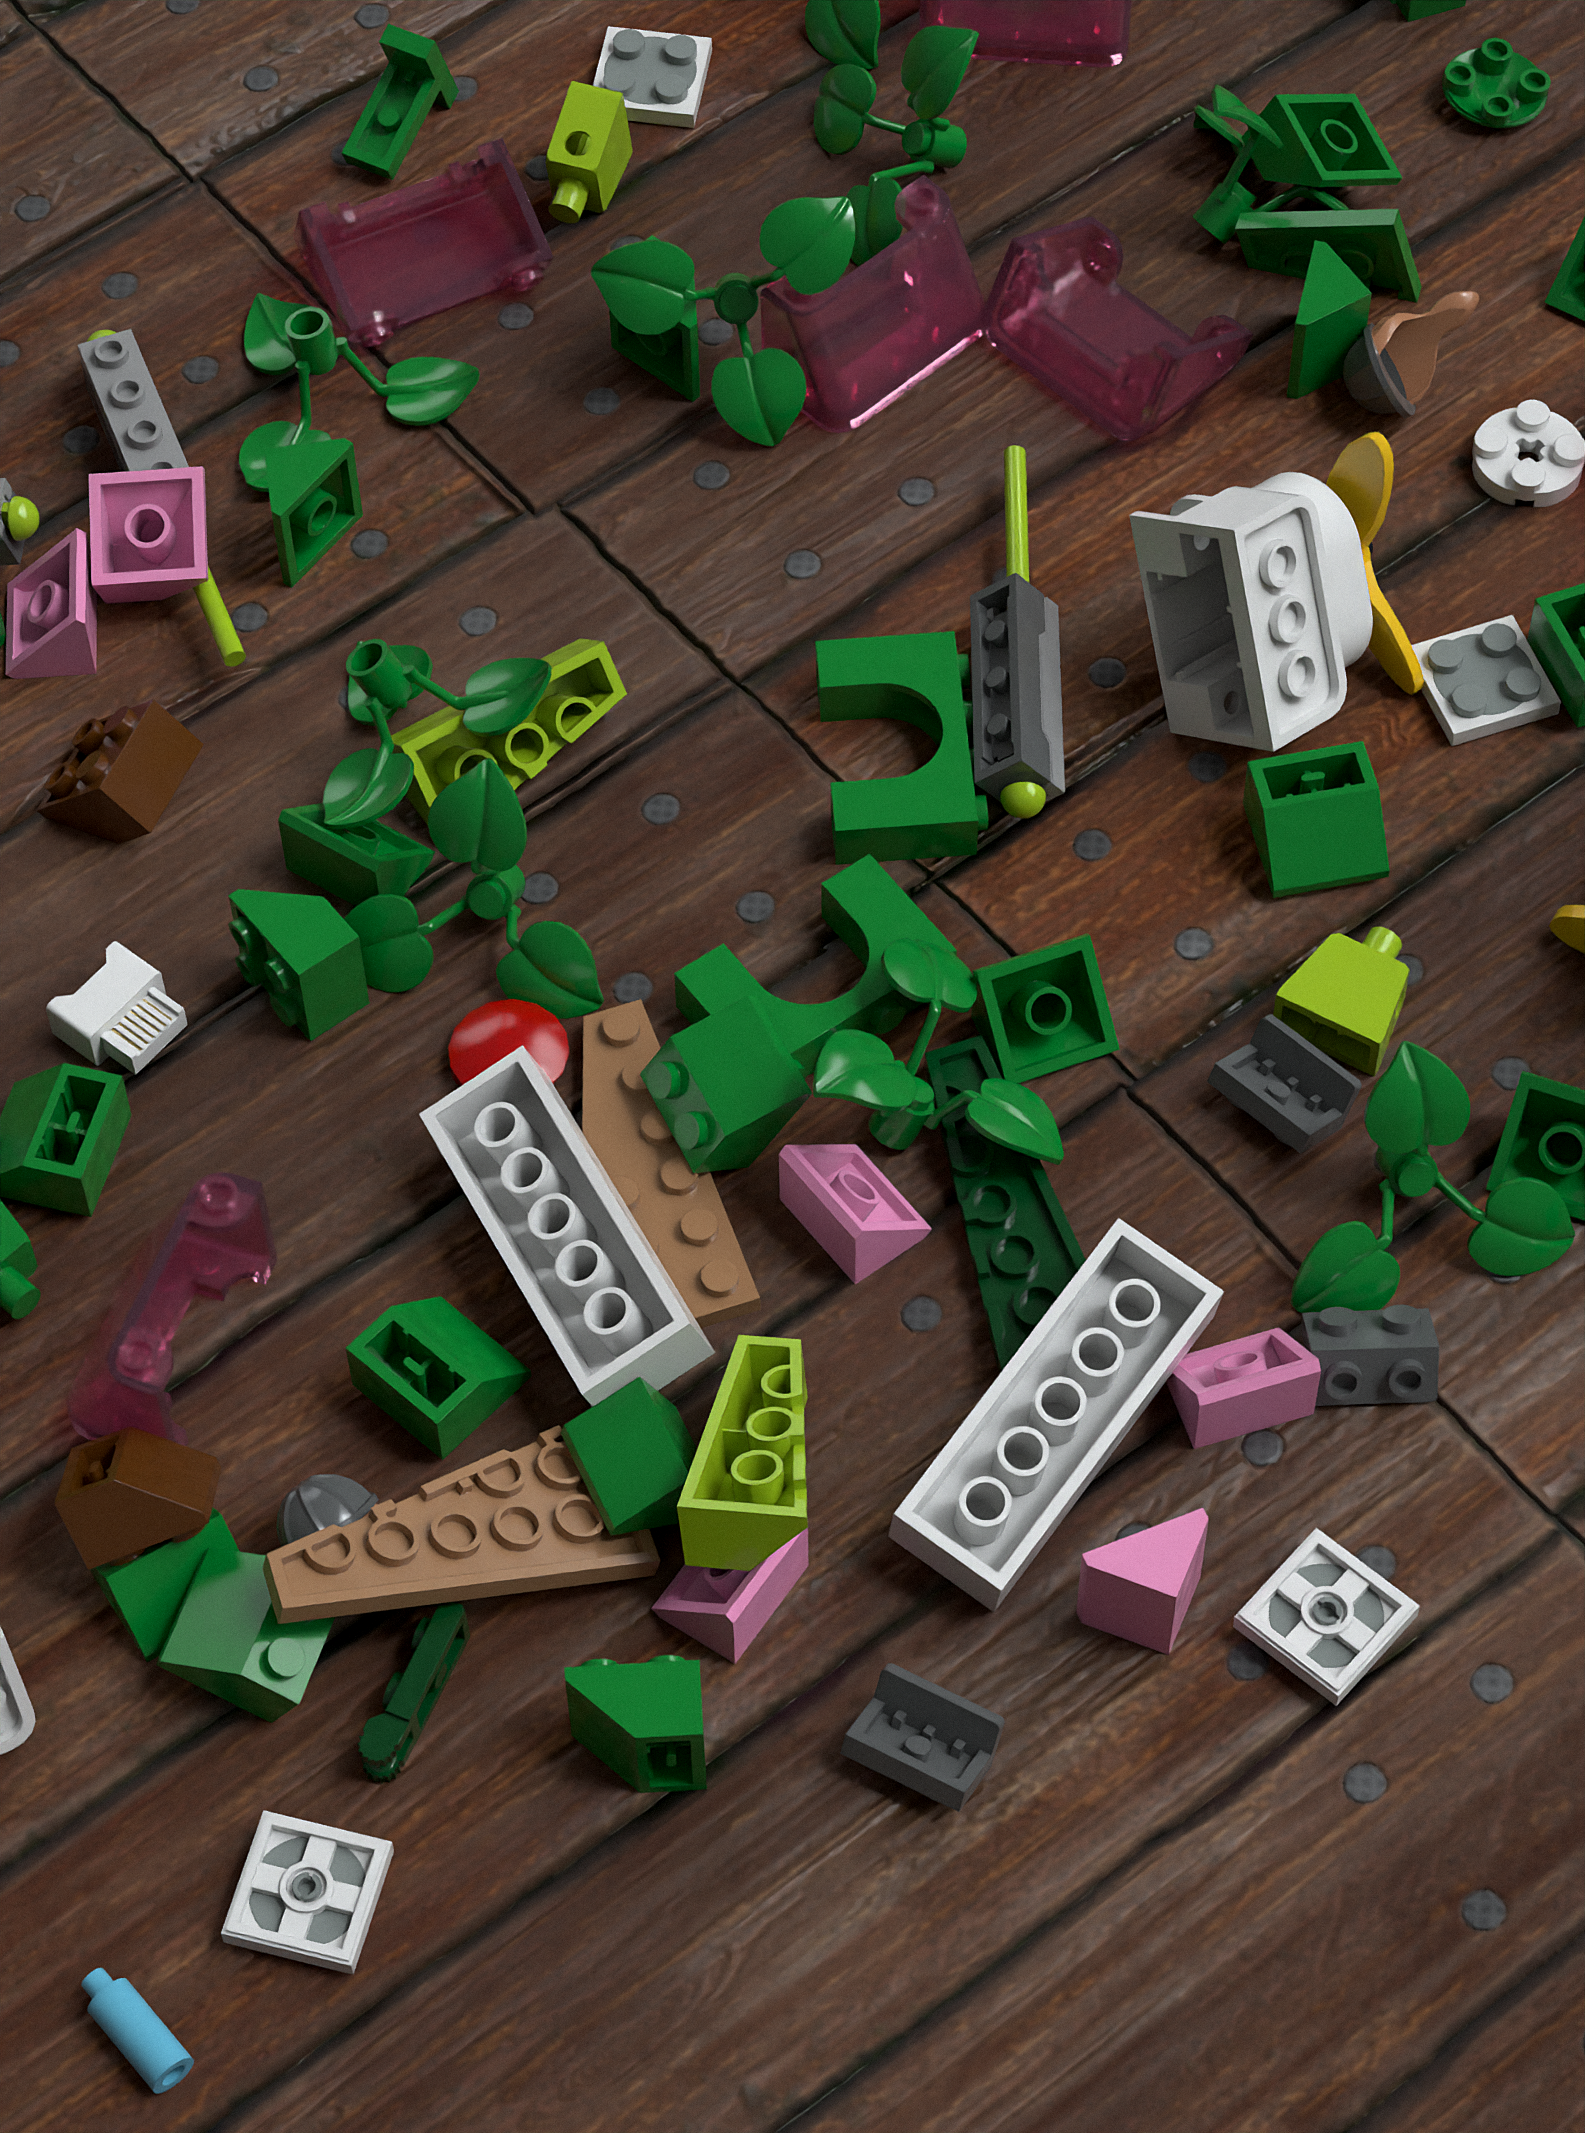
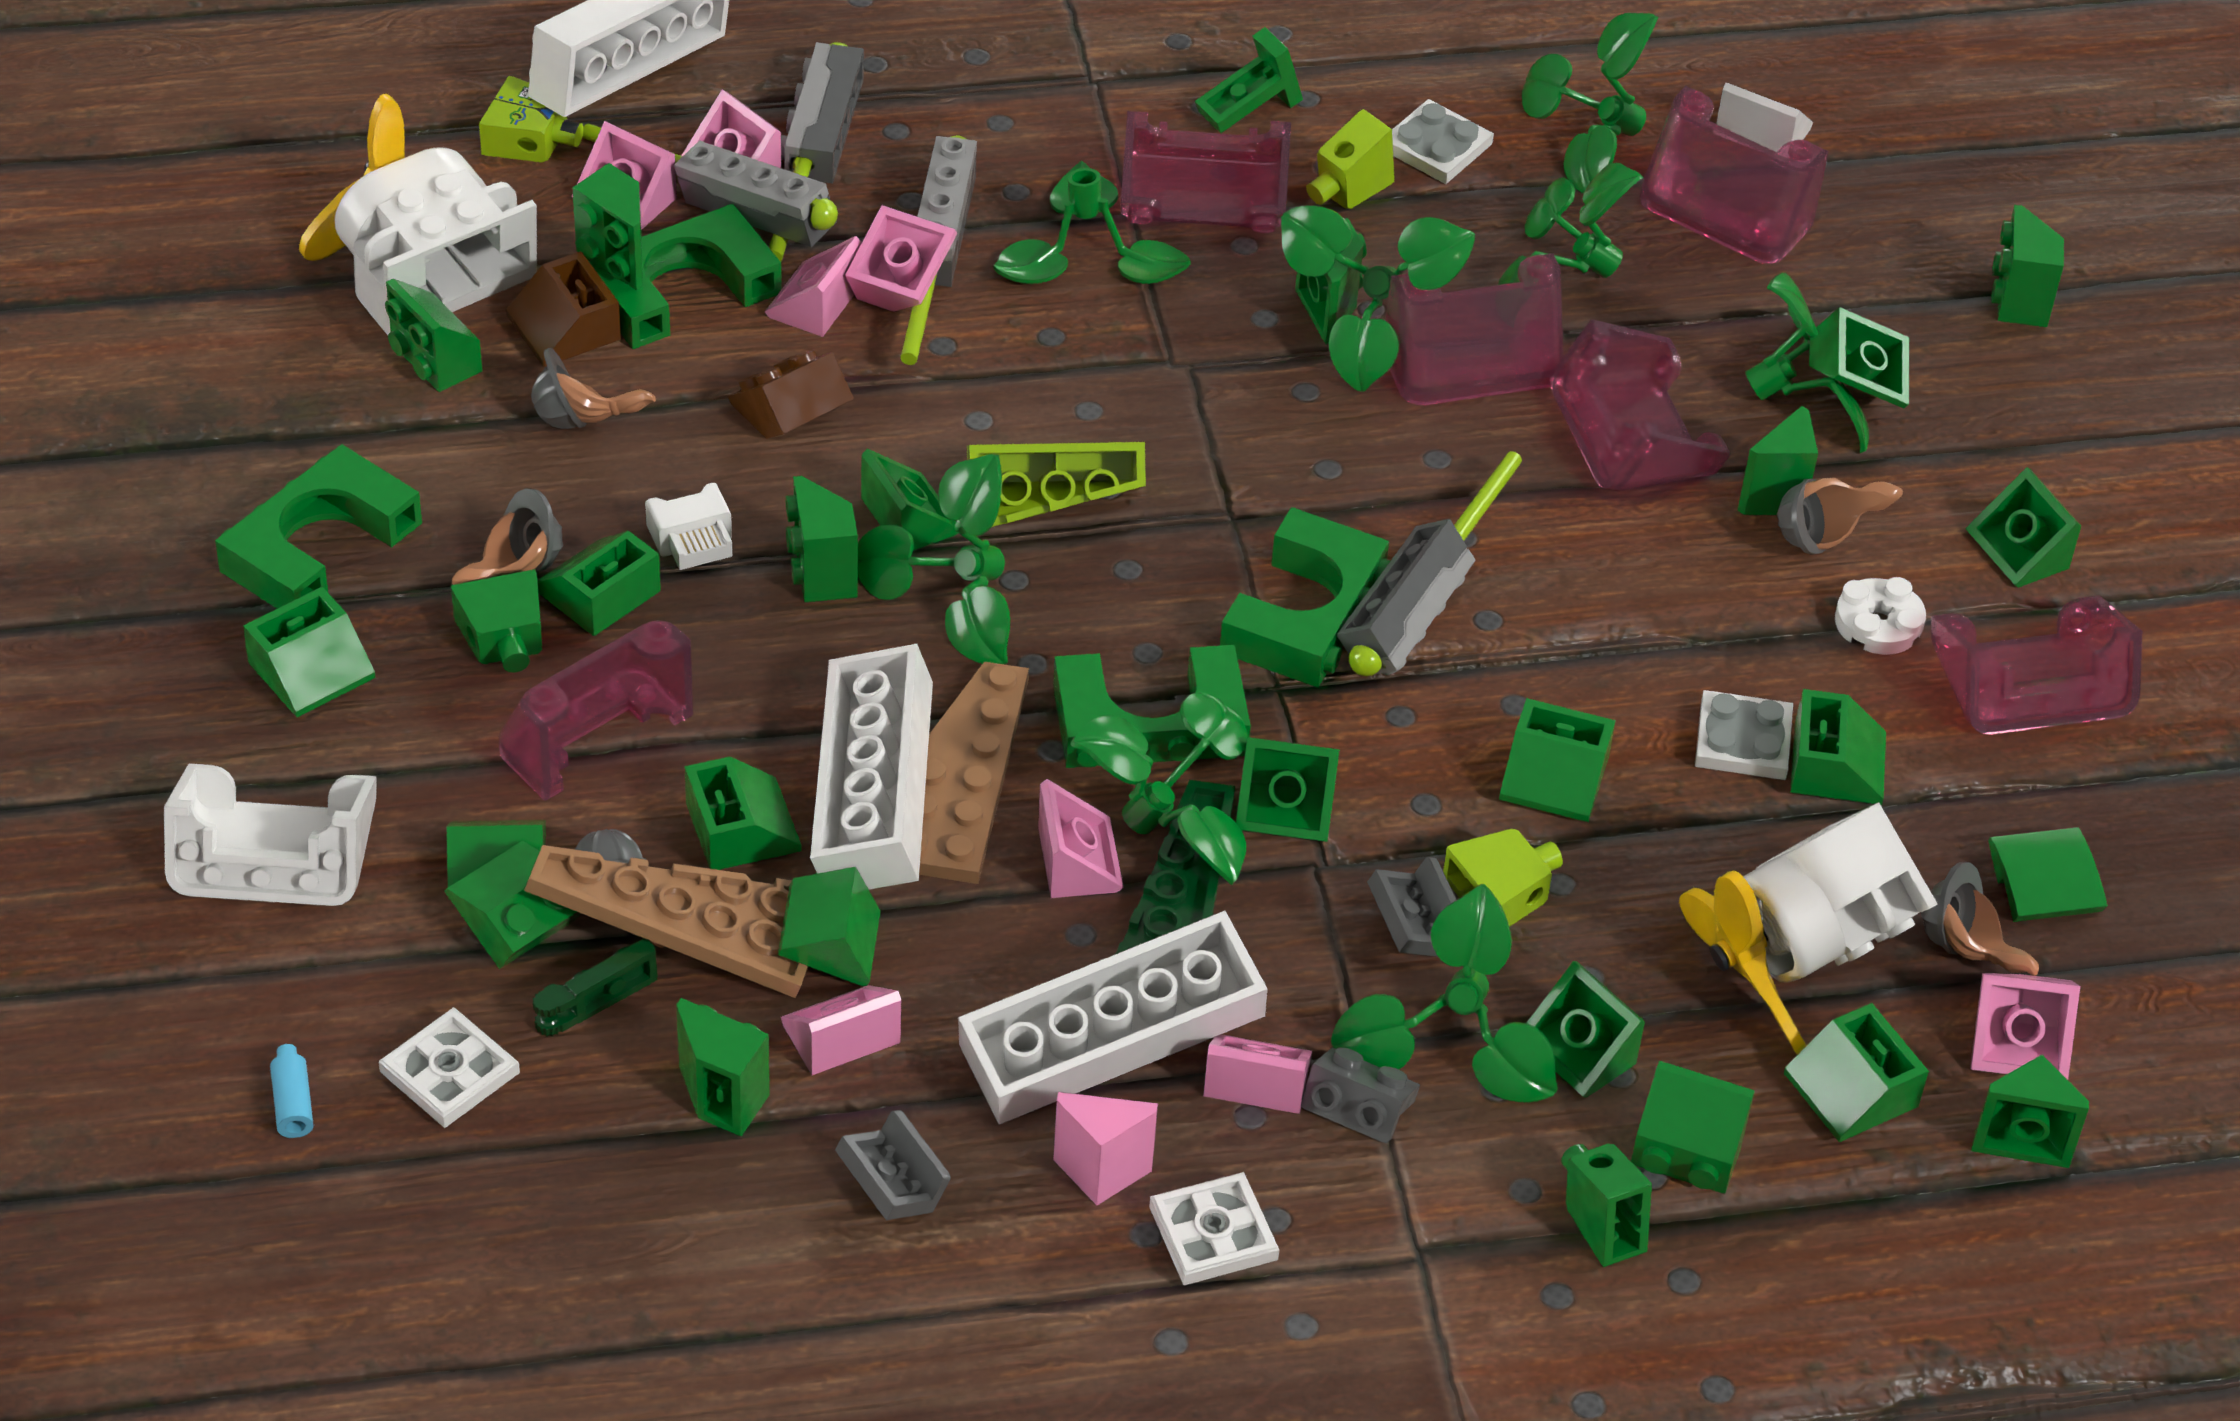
camera: 25 degrees right, 10 degrees down
(133, 1494) = (496, 787): reddish brown slope -> none
(311, 501) = (1019, 288): green slope -> none
(384, 680) = (991, 413): green plant -> none
(500, 1029) = (941, 652): red dish -> none
(726, 1086) = (1034, 733): green slope -> none
(750, 1465) = (890, 941): lime wedge -> none
(1271, 599) = (1611, 603): white brick -> none
(1365, 240) = (1839, 427): green wing -> none
(1495, 85) = (2027, 381): green dish -> none

